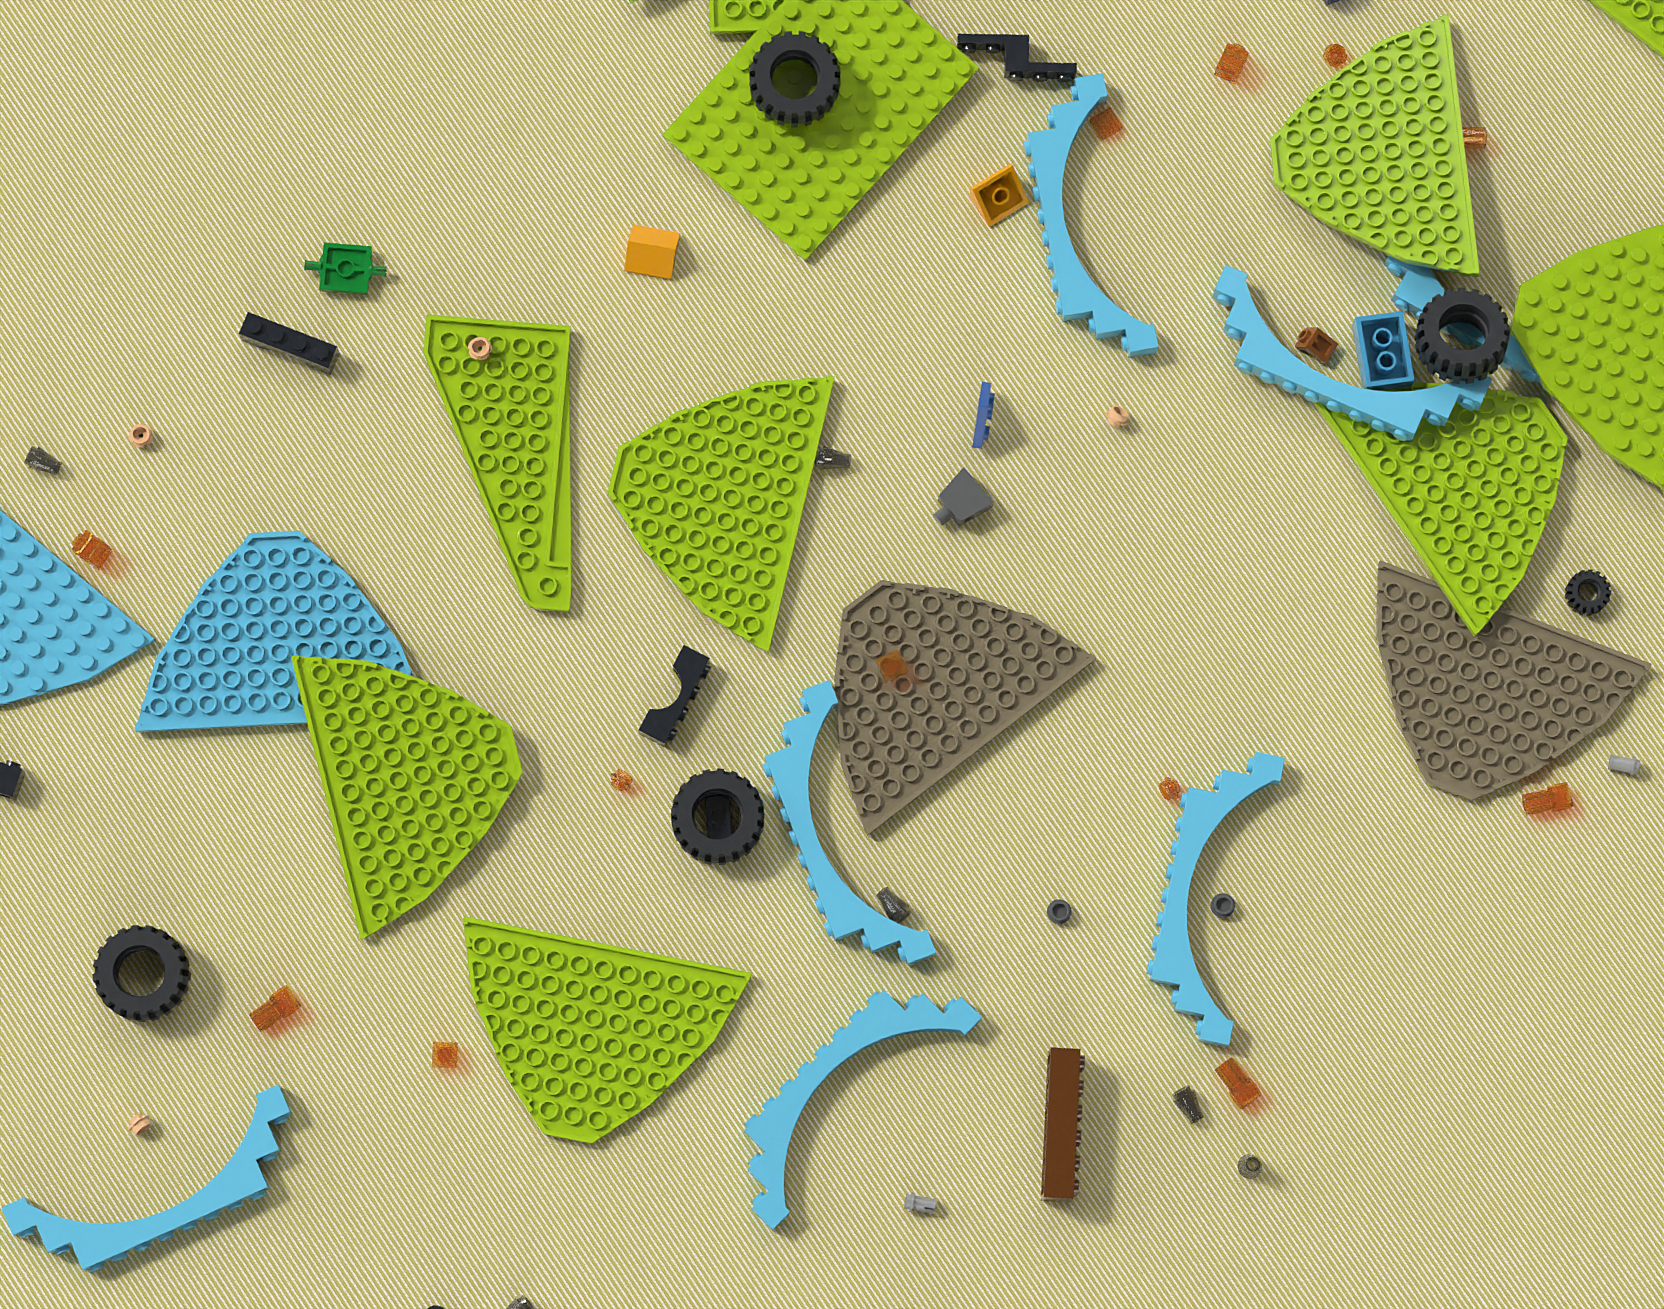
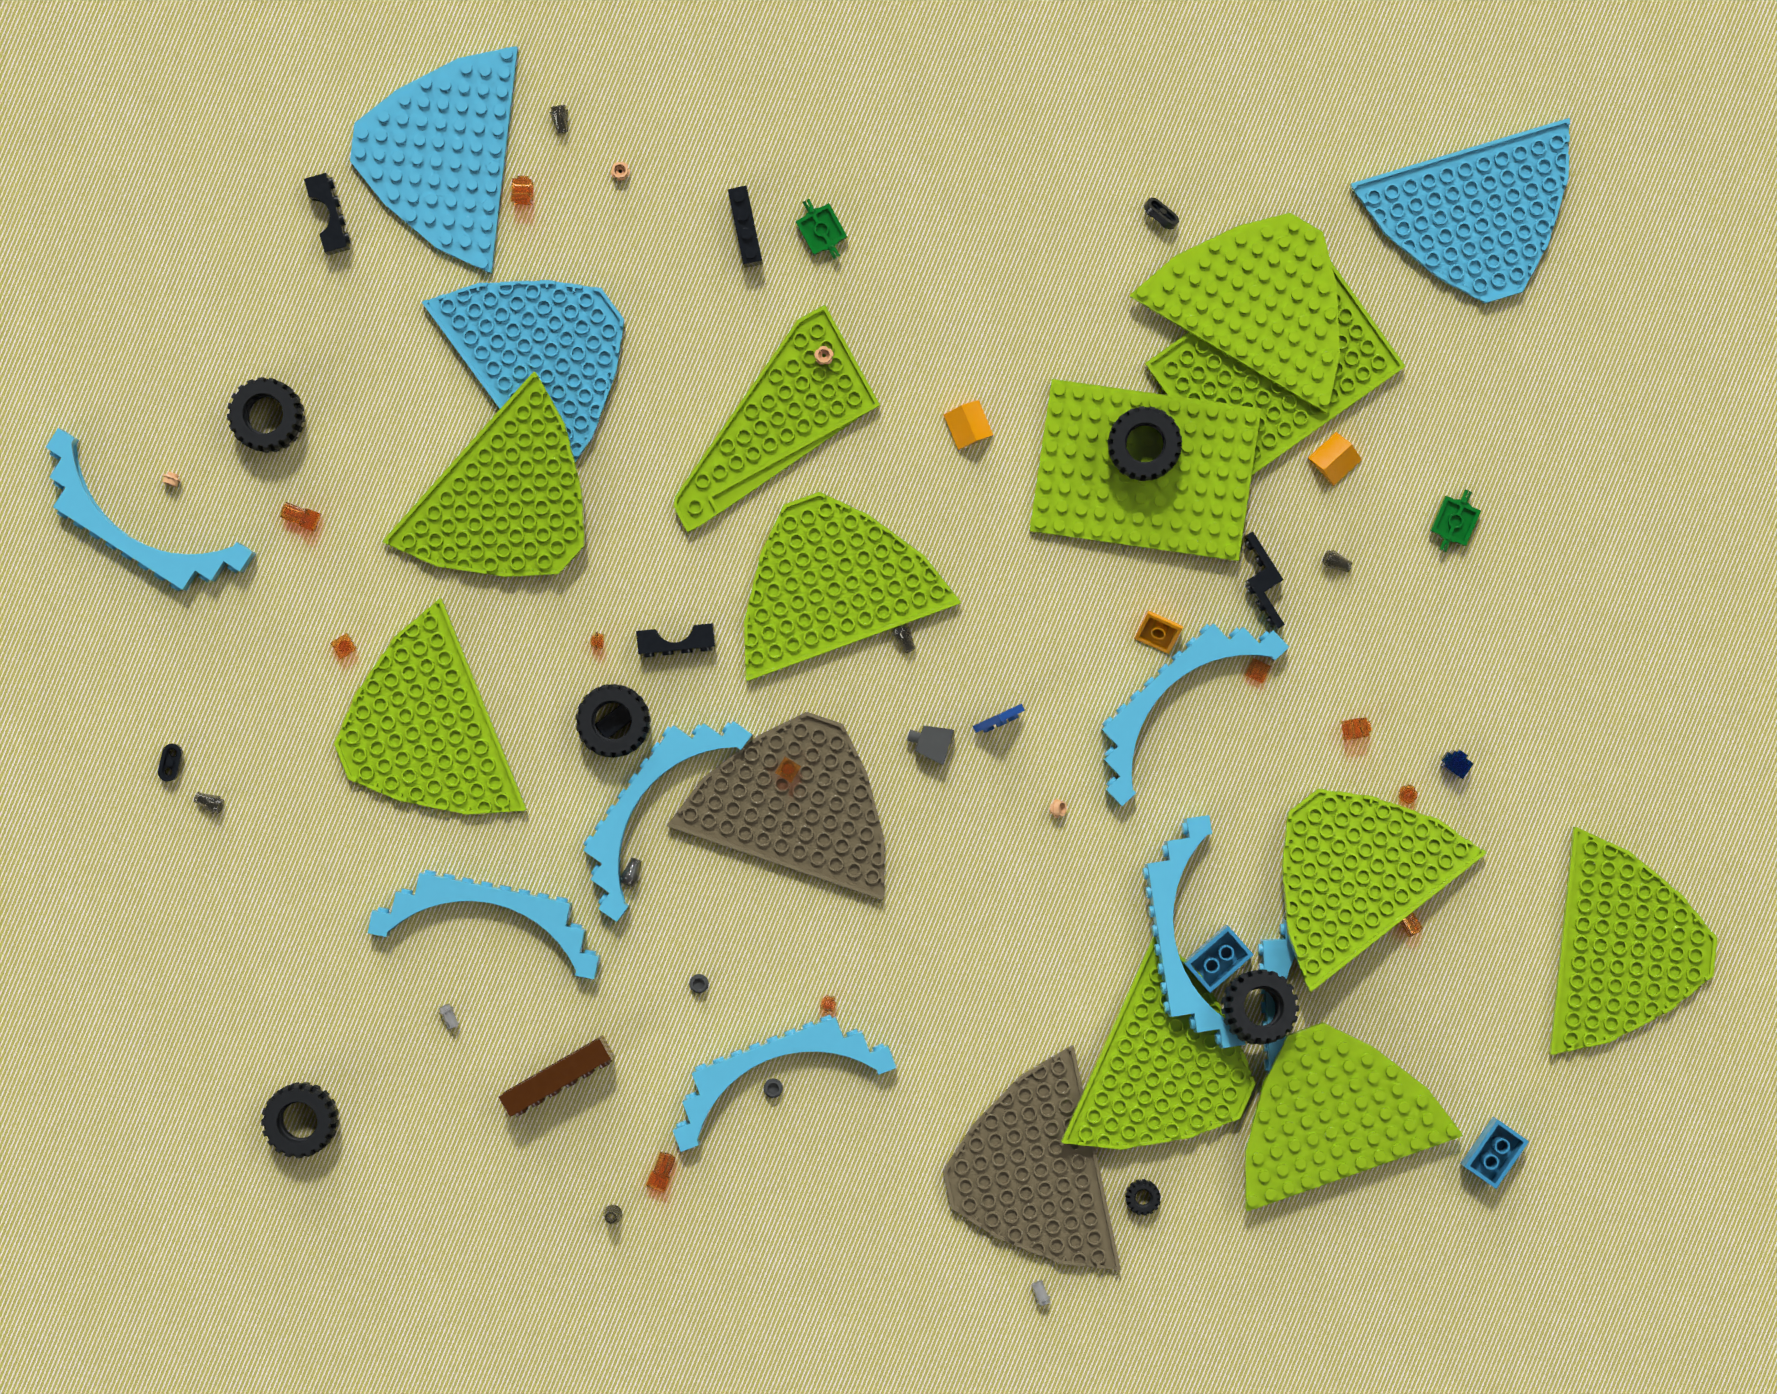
camera: 60 degrees right, 10 degrees up
(1188, 1103) = (627, 1147): clear smoke cone -> none
(1316, 344) = (1195, 909): dark orange bracket -> none
(1554, 798) = (986, 1260): clear orange piece -> none

